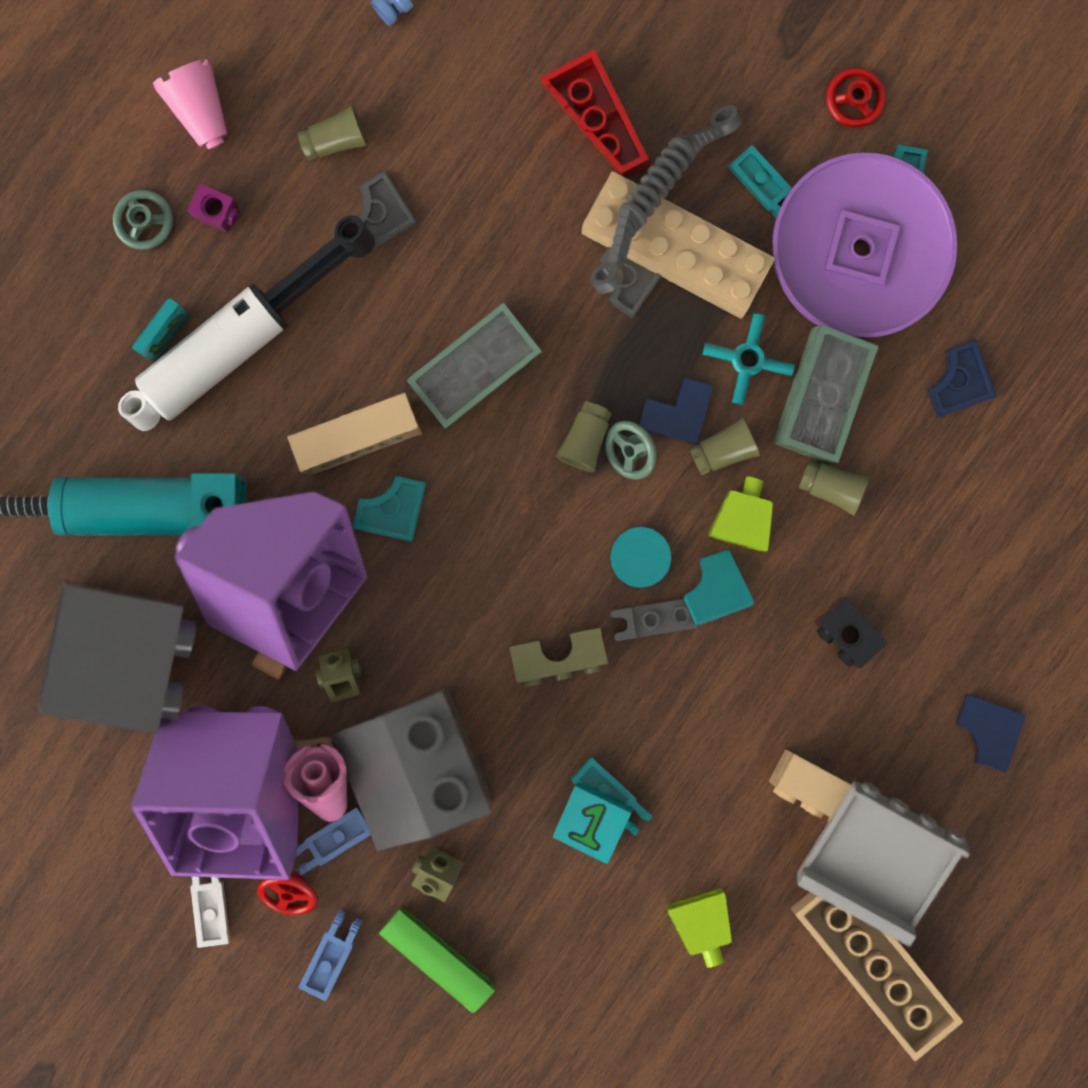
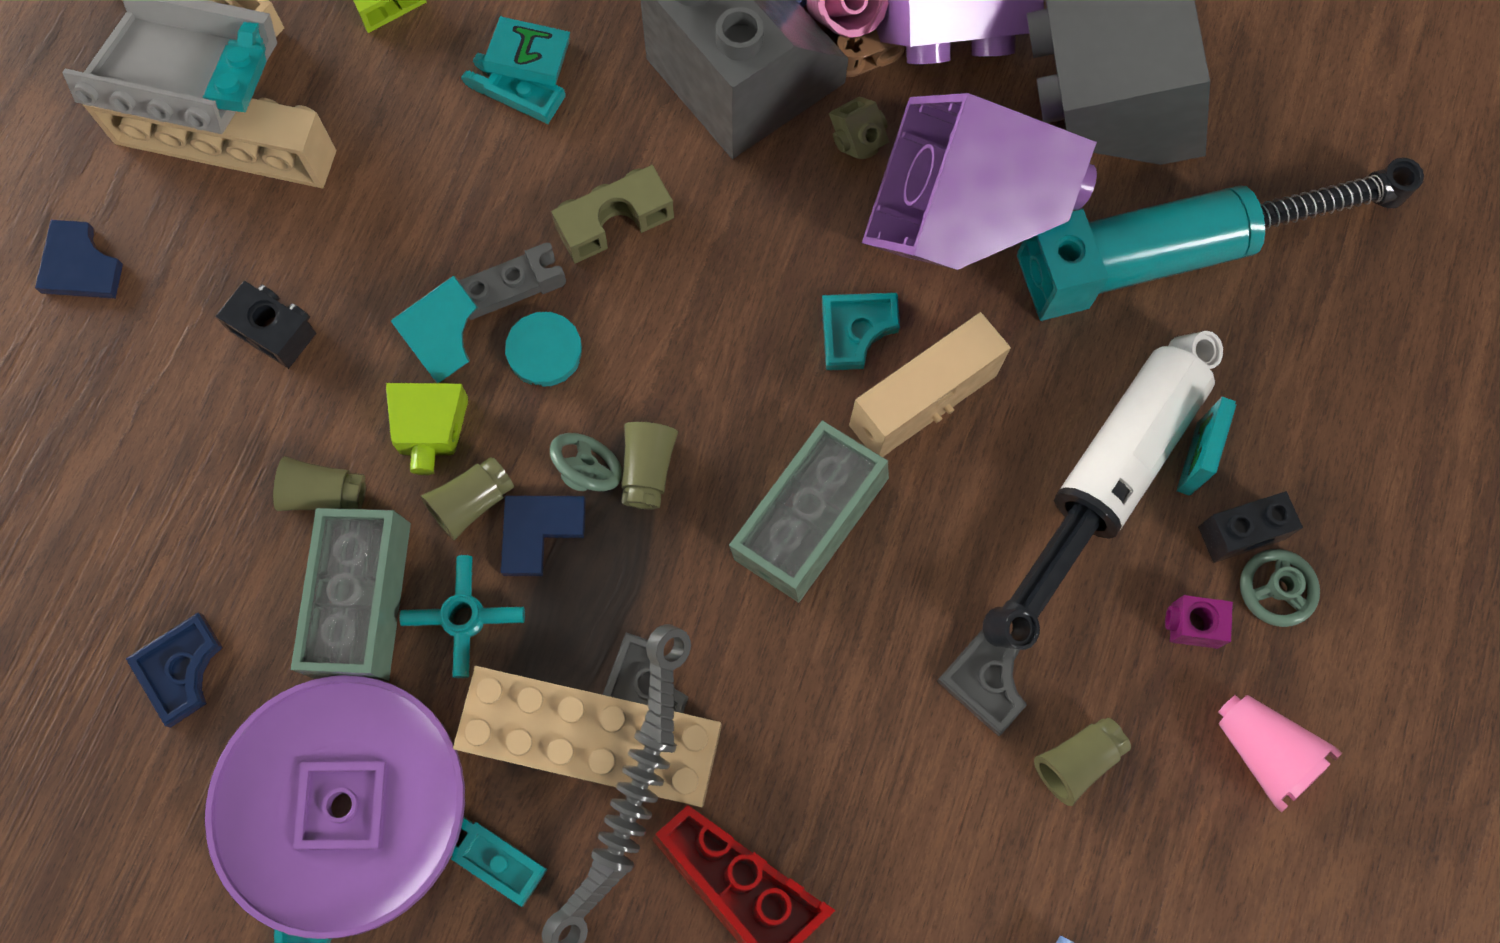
camera: 165 degrees right, 15 degrees down
(149, 265) = (1250, 526): none -> black brick
(832, 832) = (238, 70): none -> teal hinge

